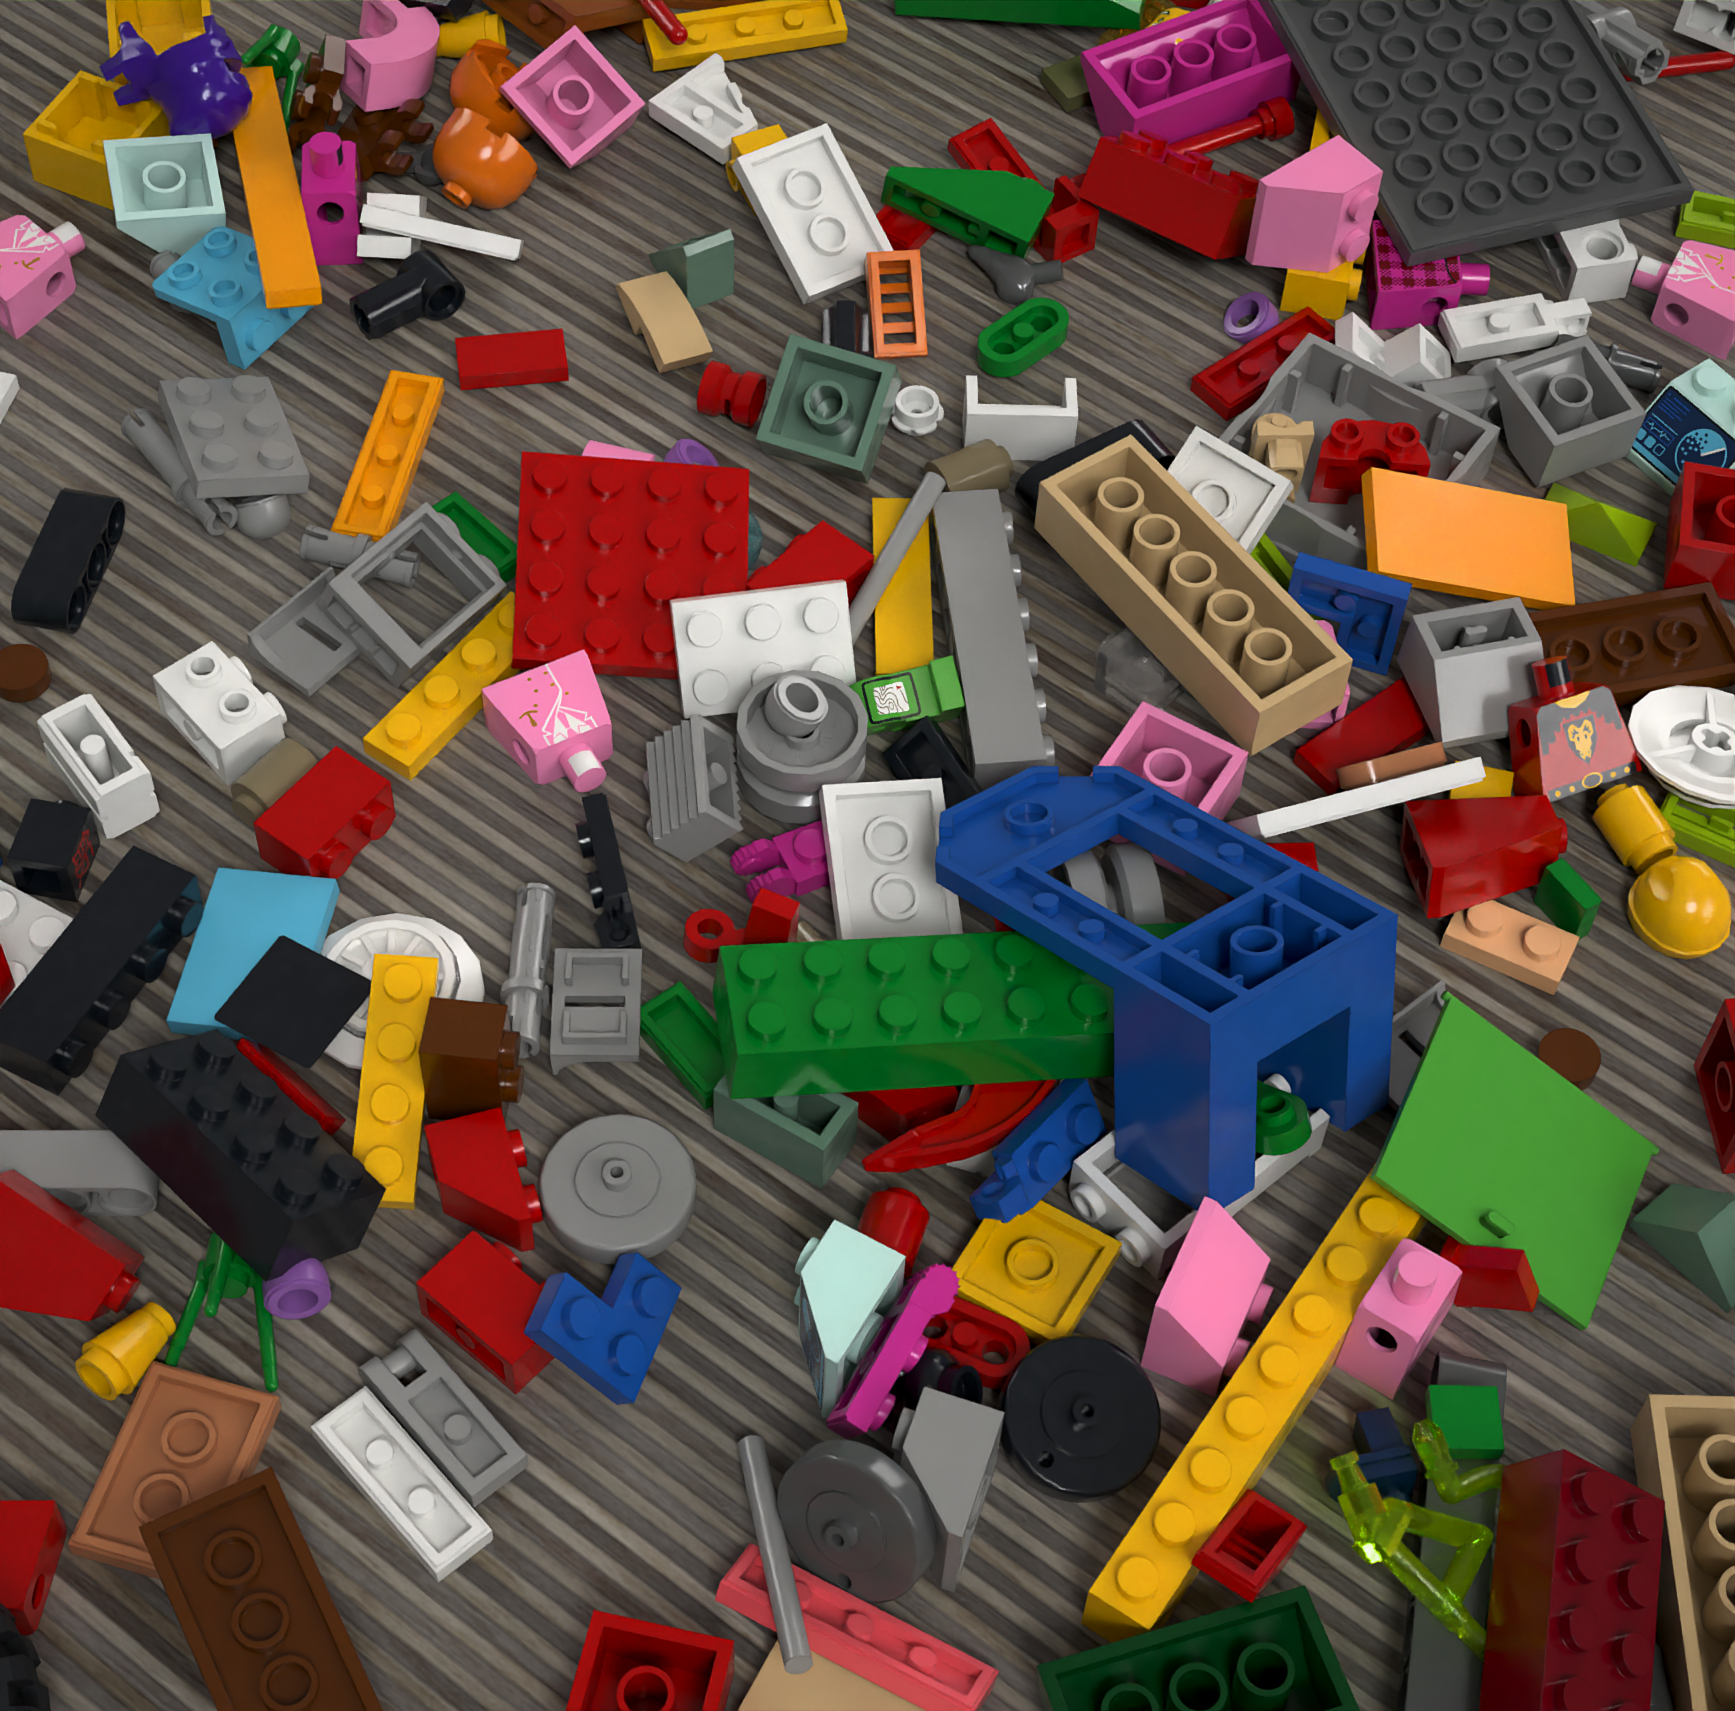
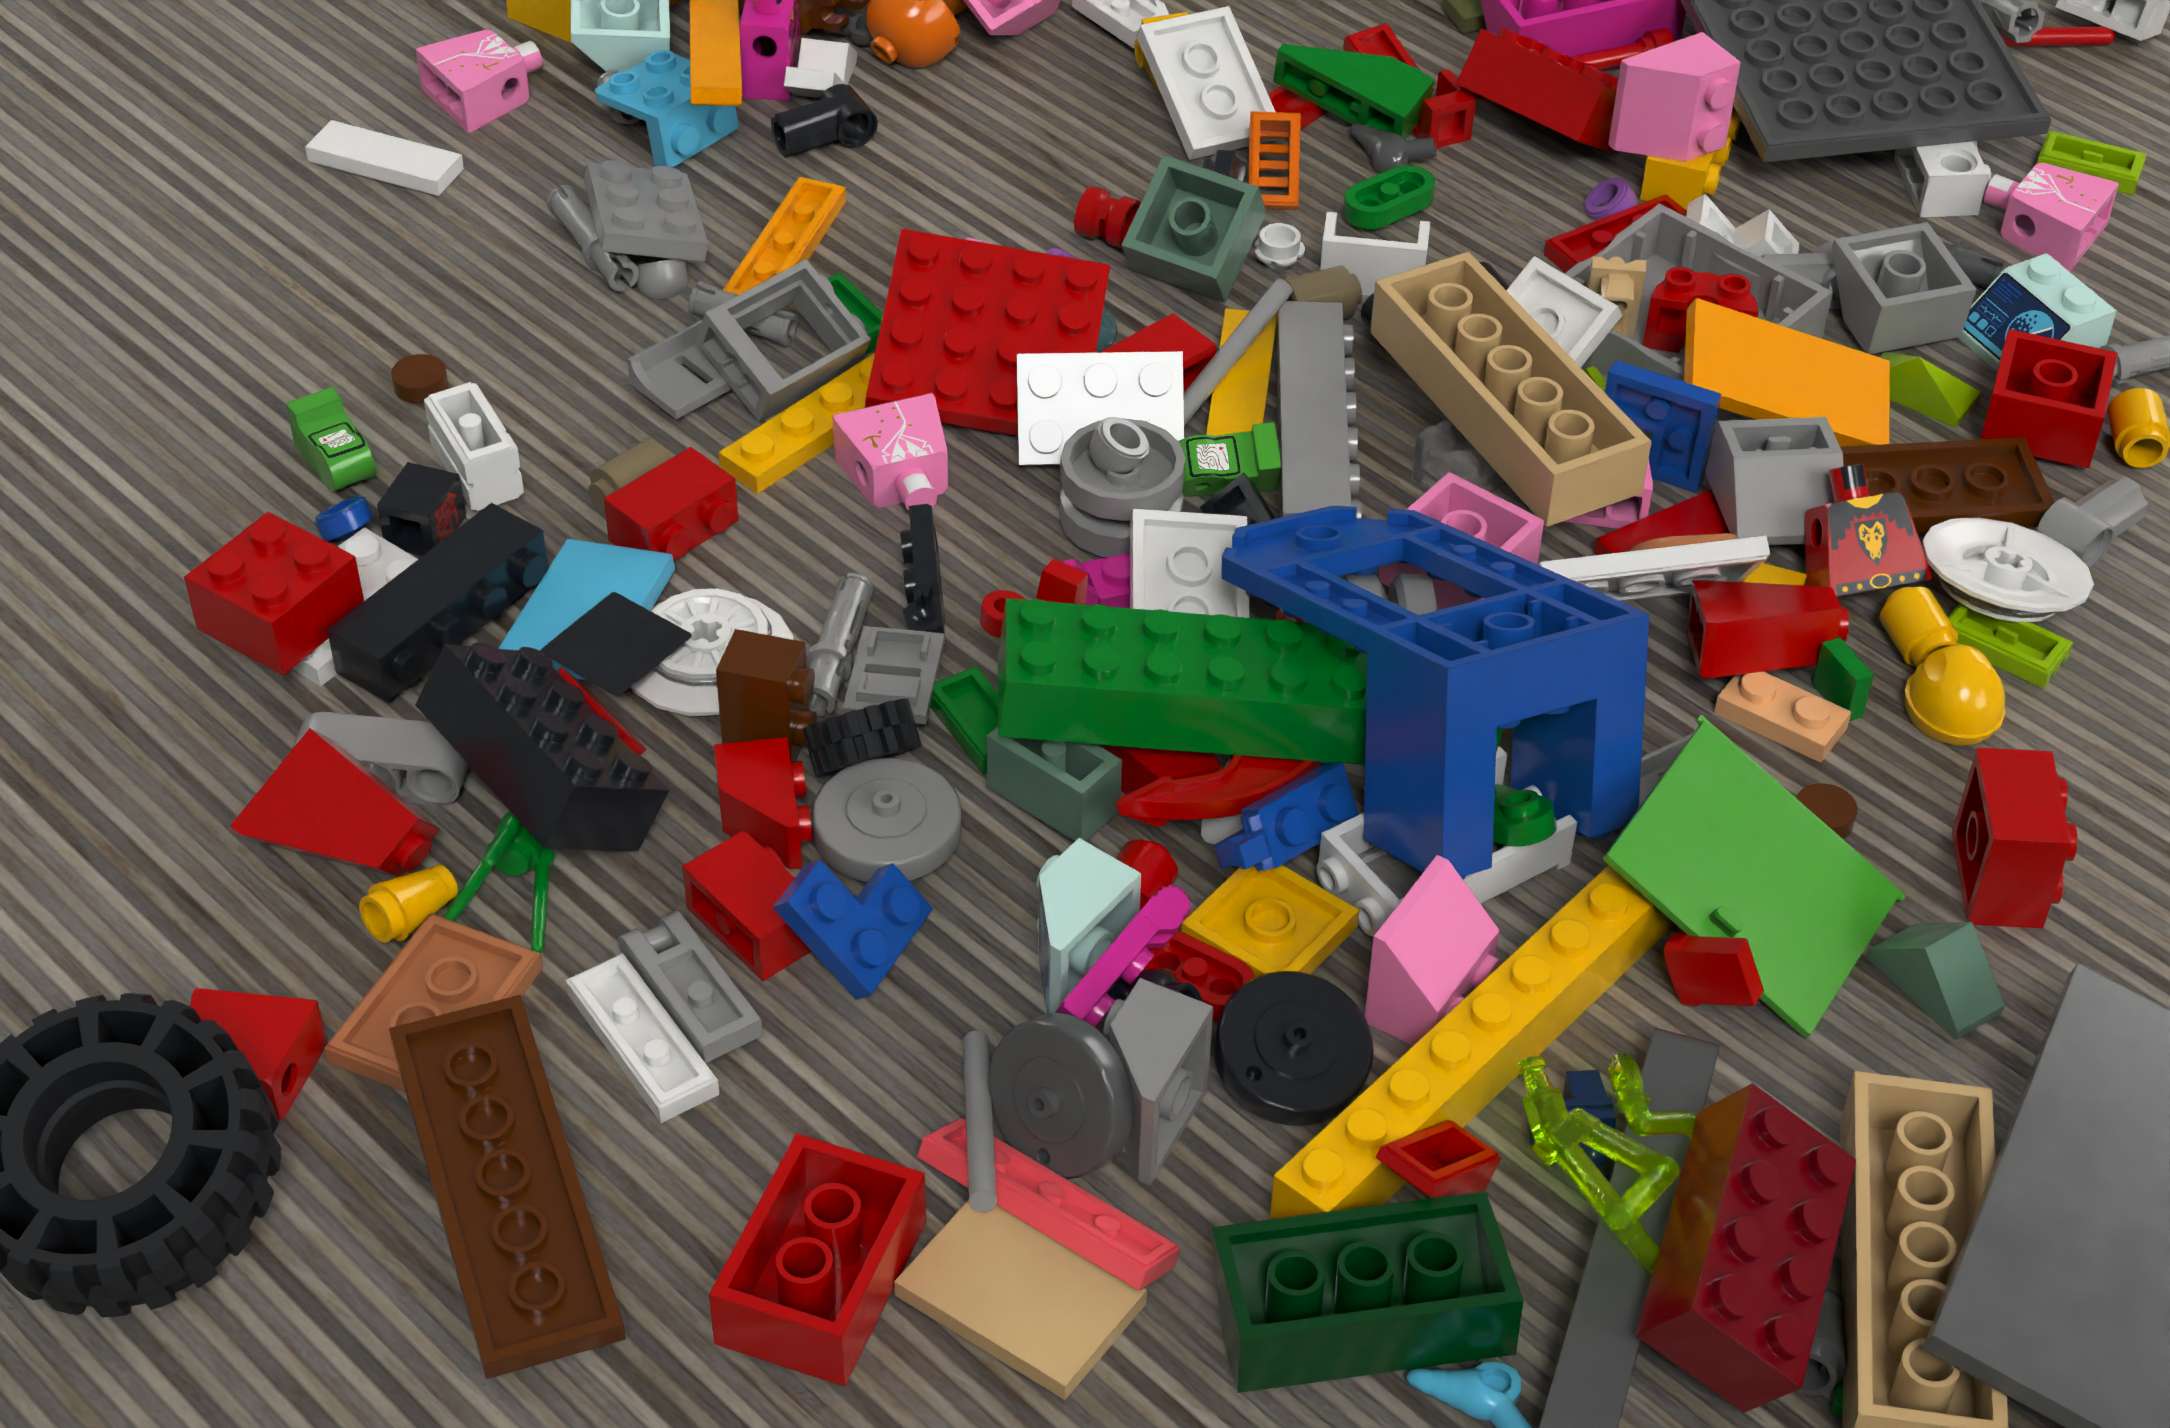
camera: 10 degrees right, 10 degrees down
(68, 561) = (479, 295): black beam -> none
(220, 710) = (590, 414): white brick -> none
(298, 1292) = (574, 870): medium lavender piece -> none
(391, 1075) = (690, 717): yellow plate -> none
(441, 232) = (865, 73): white tile -> none
(511, 359) = (911, 179): red tile -> none
(579, 1097) = (861, 736): none -> black tyre
(666, 320) = (1057, 158): tan slope -> none
(692, 788) = (1014, 512): light grey brick -> none
(700, 266) = (1095, 119): sand green slope -> none
(1410, 1304) = (1633, 974): bright pink torso -> none
(1416, 293) = (1776, 185): dark pink torso -> none
(1468, 1419) = (1671, 1076): green tile -> none
(1510, 325) = (1830, 220): white hinge -> none

